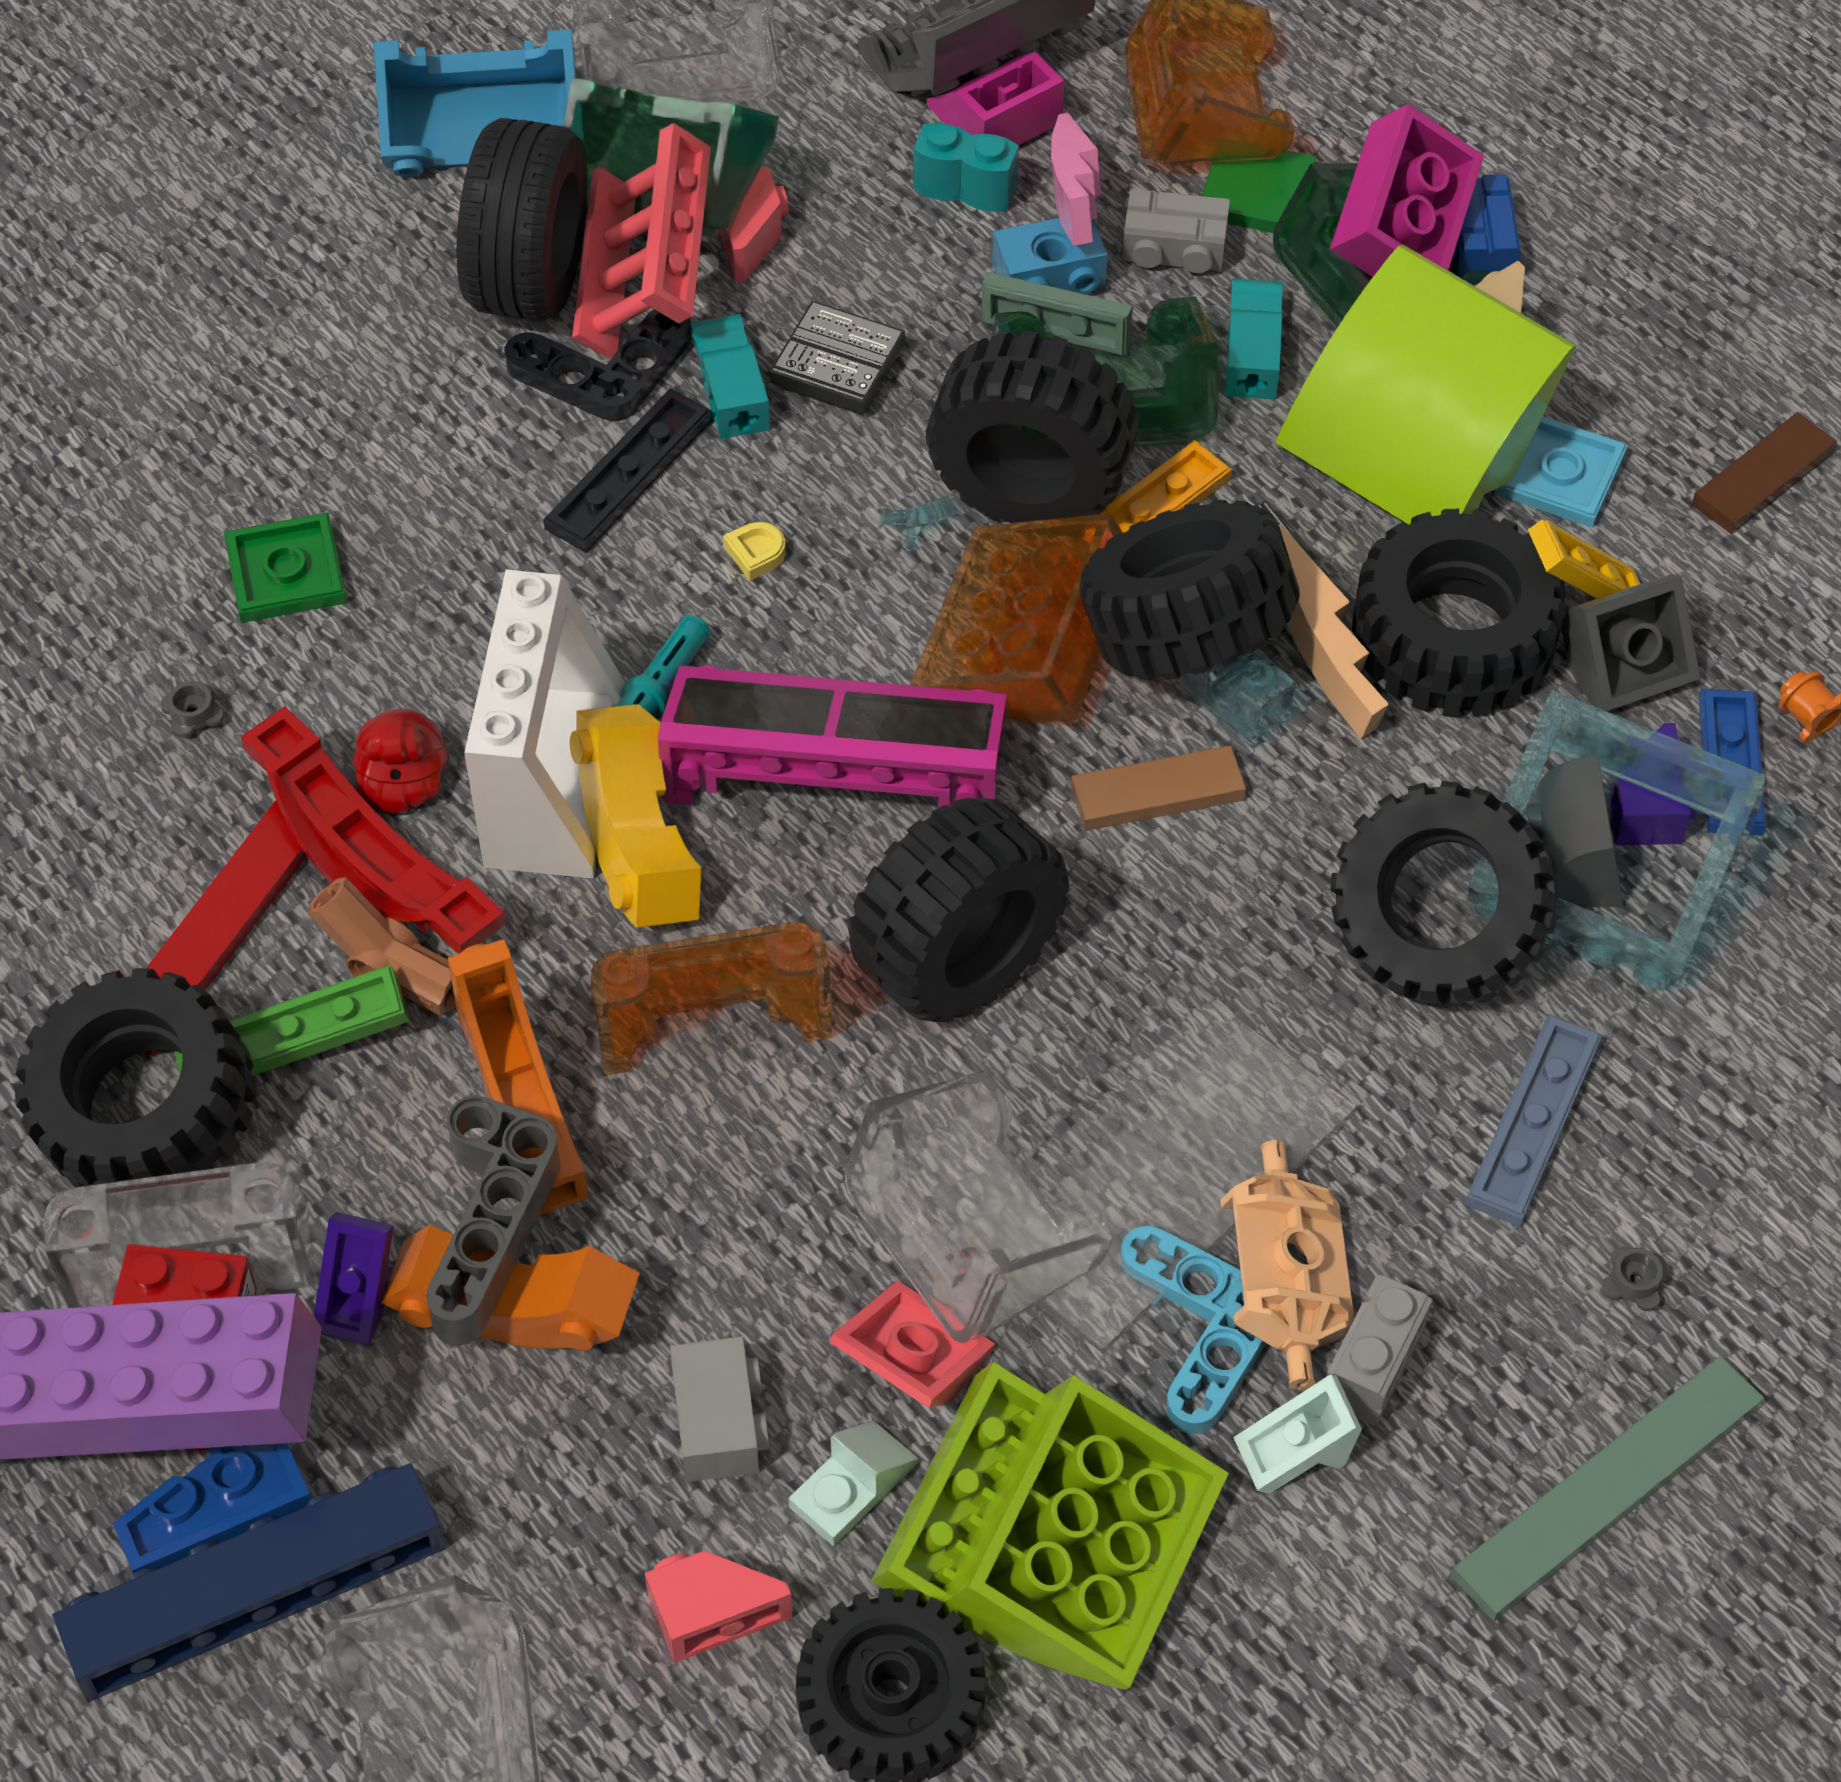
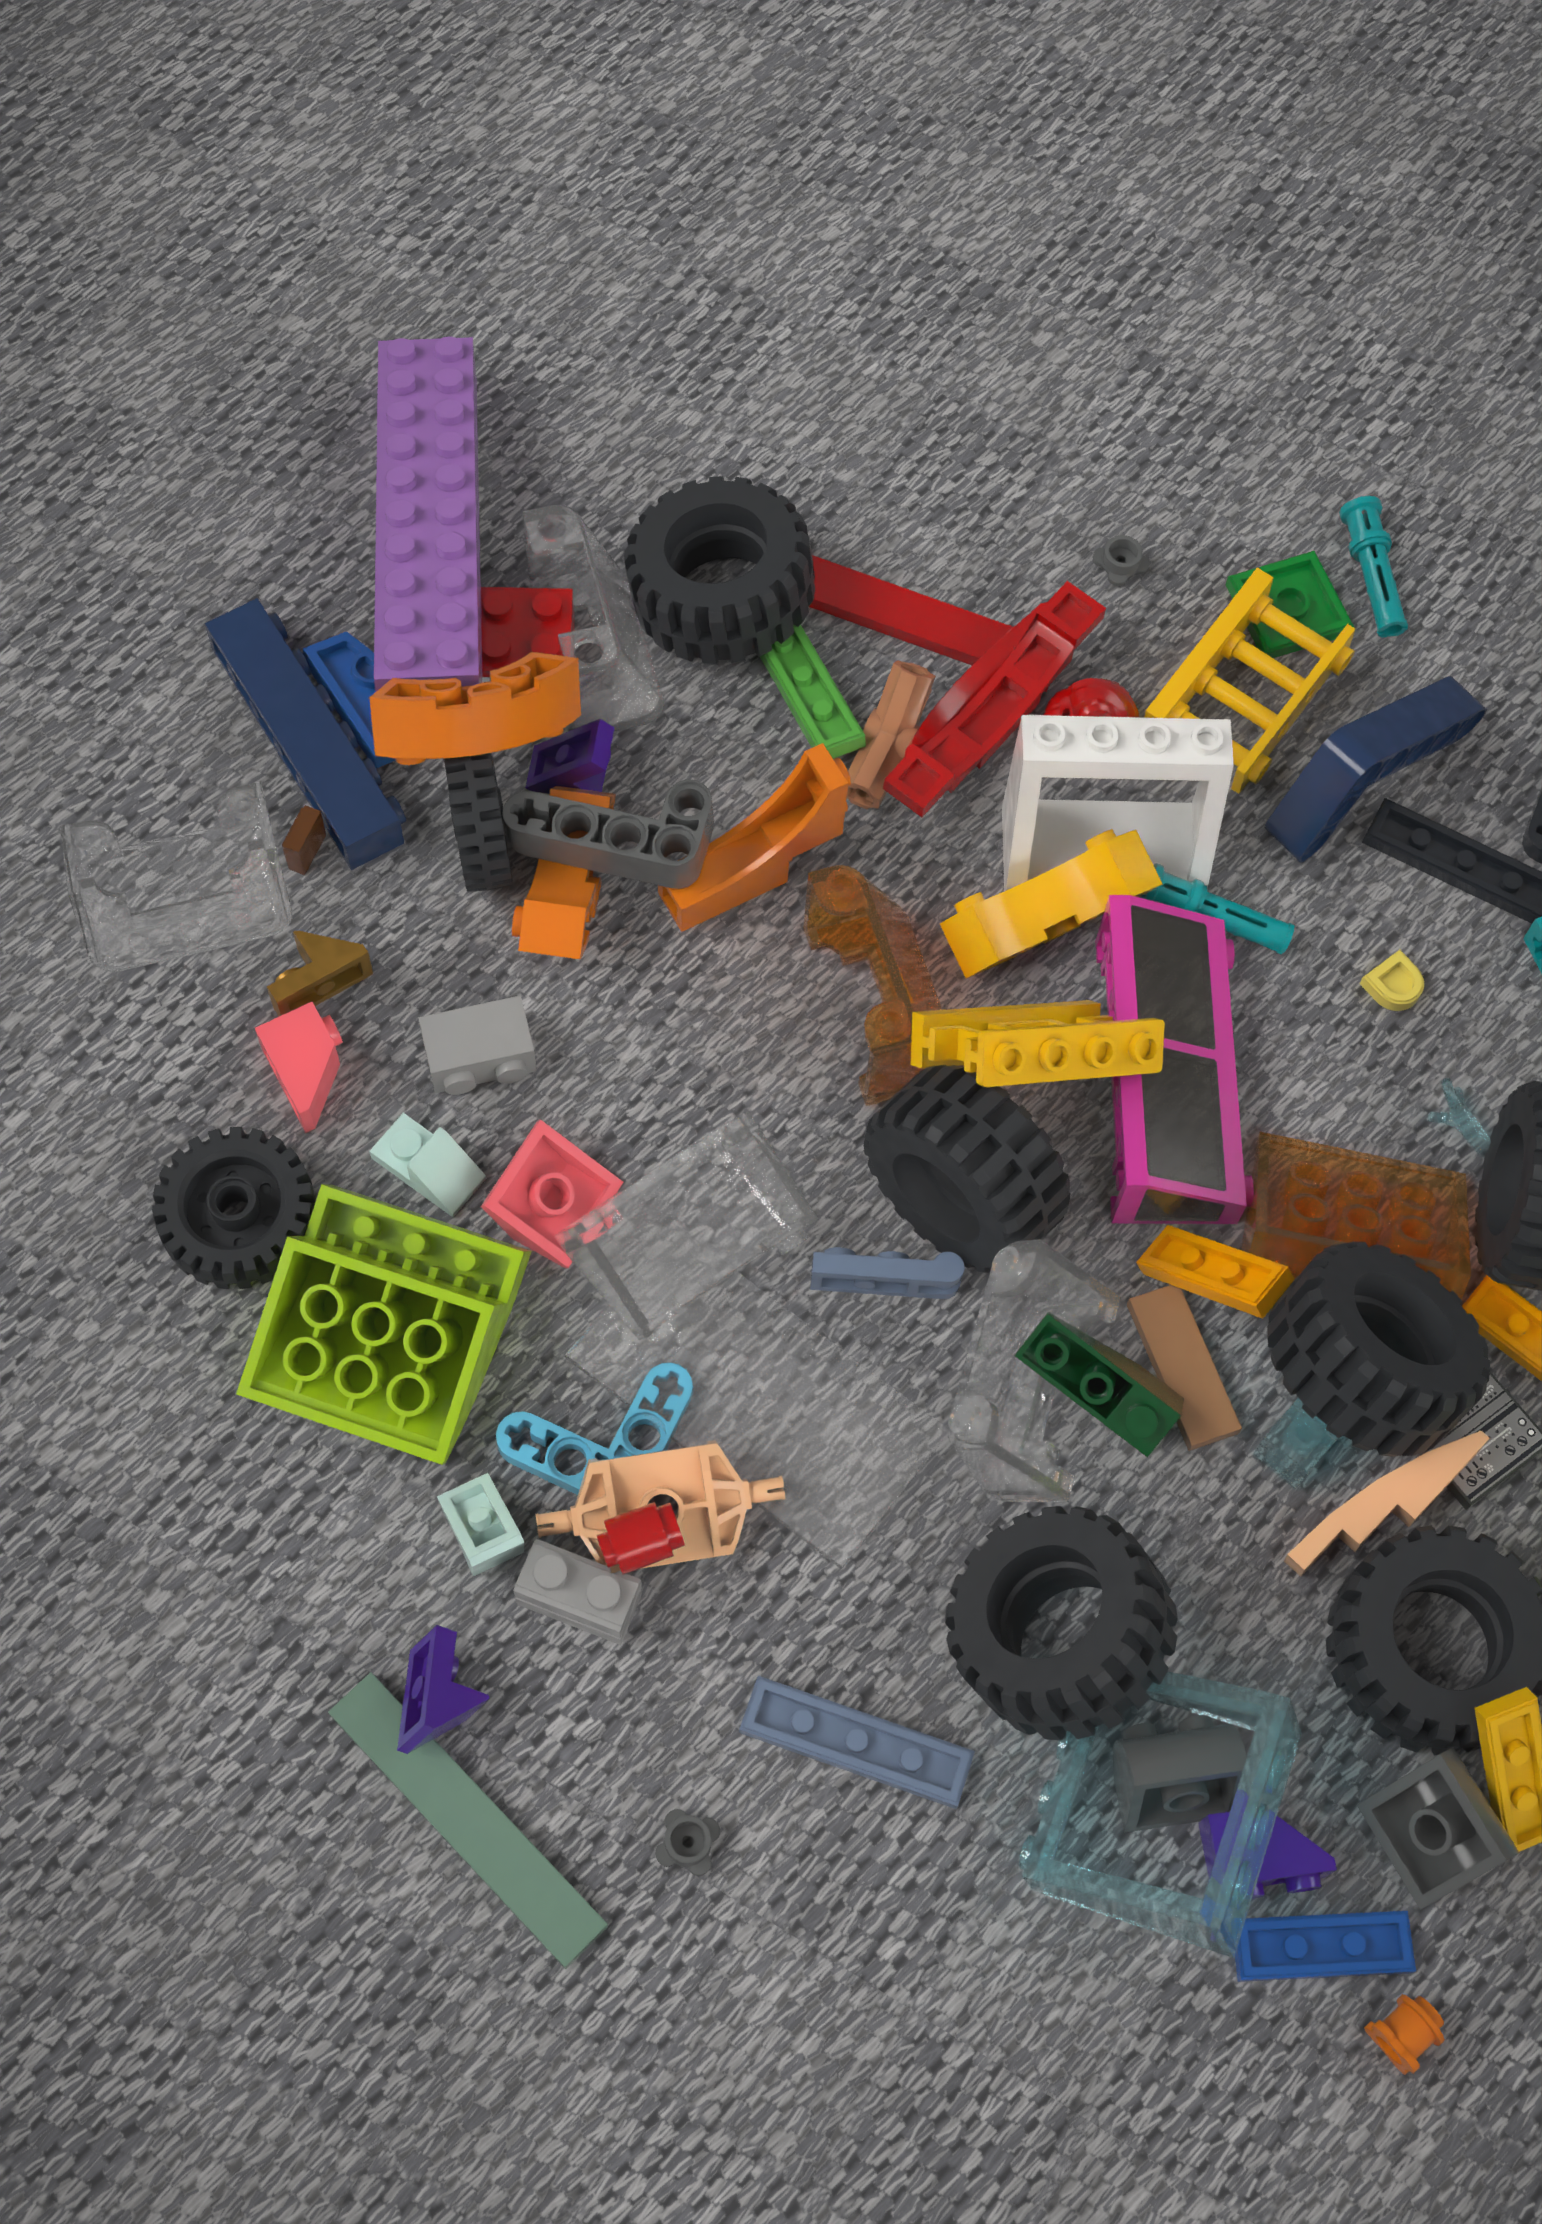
camera: 80 degrees right, 10 degrees up
(233, 481) = (1371, 548): none -> teal pin
(350, 1314) = (444, 720): none -> orange brick
(369, 652) = (1227, 640): none -> yellow fence
(396, 1577) = (304, 839): none -> reddish brown tile
(432, 1361) = (478, 822): none -> black wheel
(518, 495) = (1365, 754): none -> dark blue beam
(590, 1573) = (329, 969): none -> pearl gold slope
(835, 816) = (1037, 1042): none -> yellow fence
(1039, 1028) = (887, 1274): none -> sand blue plate
(1076, 729) = (1215, 1271): none -> light orange tile
(1195, 833) = (1102, 1382): none -> dark green slope
(1250, 936) = (1002, 1401): none -> clear windscreen
(1338, 1261) = (640, 1537): none -> red brick
(1488, 1497) = (431, 1697): none -> dark purple slope

